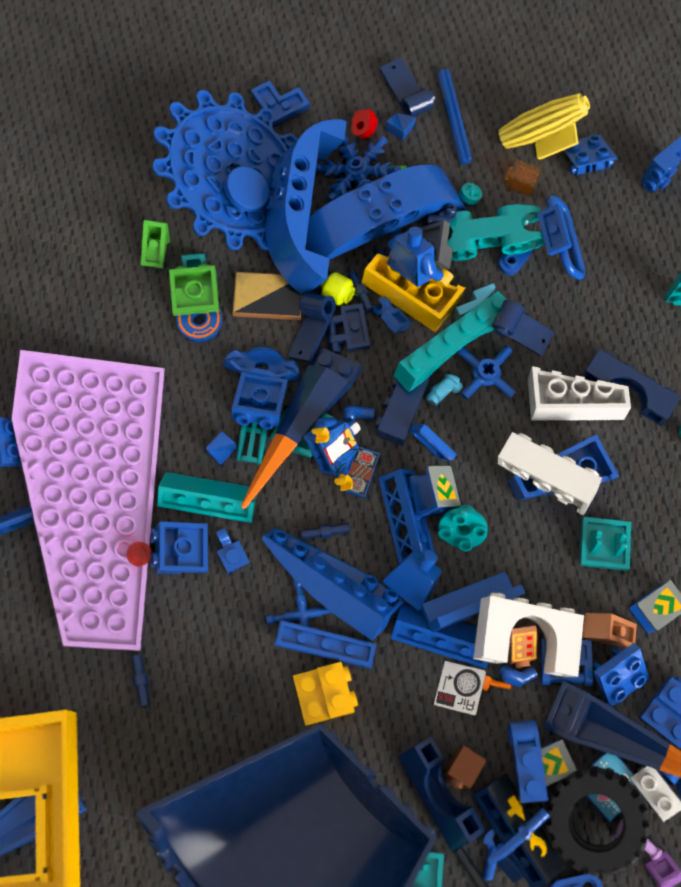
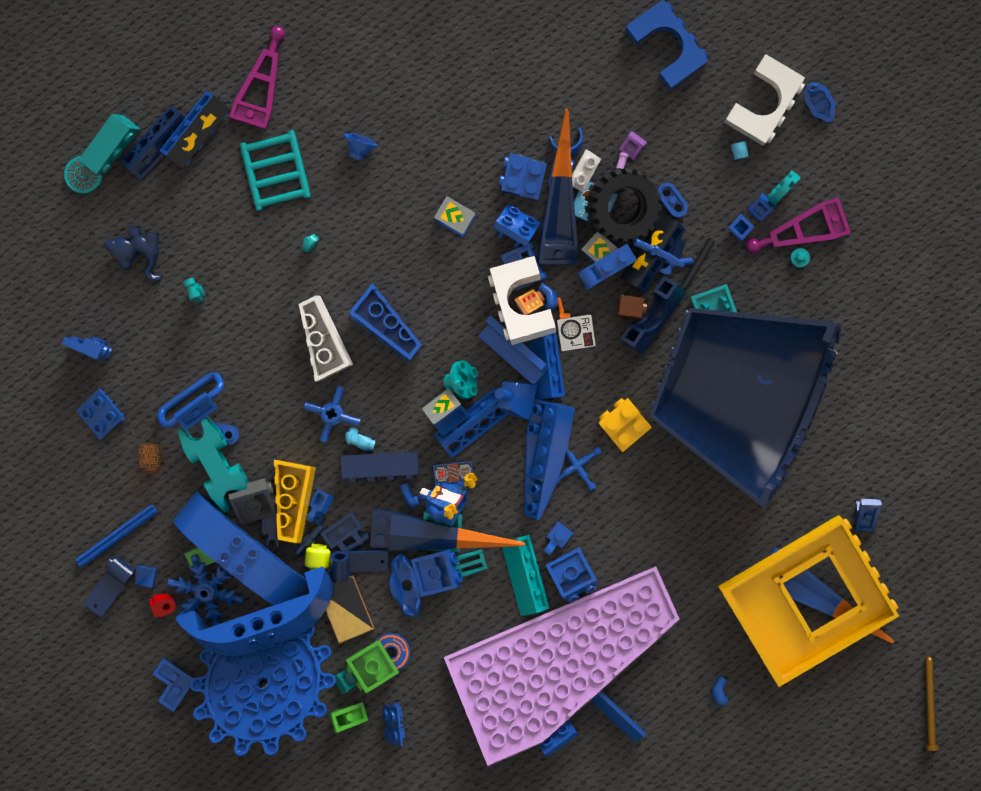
camera: 115 degrees left, 15 degrees up
(113, 287) = (393, 730): none -> blue hinge
(139, 554) = (591, 601): clear red plate -> none
(140, 680) = (675, 555): dark blue bar -> none
(221, 448) = (485, 583): blue slope -> none
(246, 189) = (276, 664): blue tile -> none
(325, 531) = (510, 477): dark blue bar -> none
(325, 644) = (591, 439): blue tile -> none
(414, 258) = (274, 506): blue torso -> none
(430, 356) = (322, 449): teal arch -> none
(432, 442) = (409, 430): blue tile -> none
(446, 214) = (221, 502): dark blue arm -> none
(470, 194) = (183, 492): teal tile -> none
(477, 298) = (273, 445): medium azure slope -> none
(521, 328) = (285, 402): dark blue door -> none
(548, 125) = (98, 453): light yellow plate -> none
(550, 471) = (399, 335): white wedge -> none
(605, 543) = (424, 272): teal plate -> none
(609, 629) = (487, 244): nougat slope -> none
(655, 399) = (295, 276): dark blue arch -> none

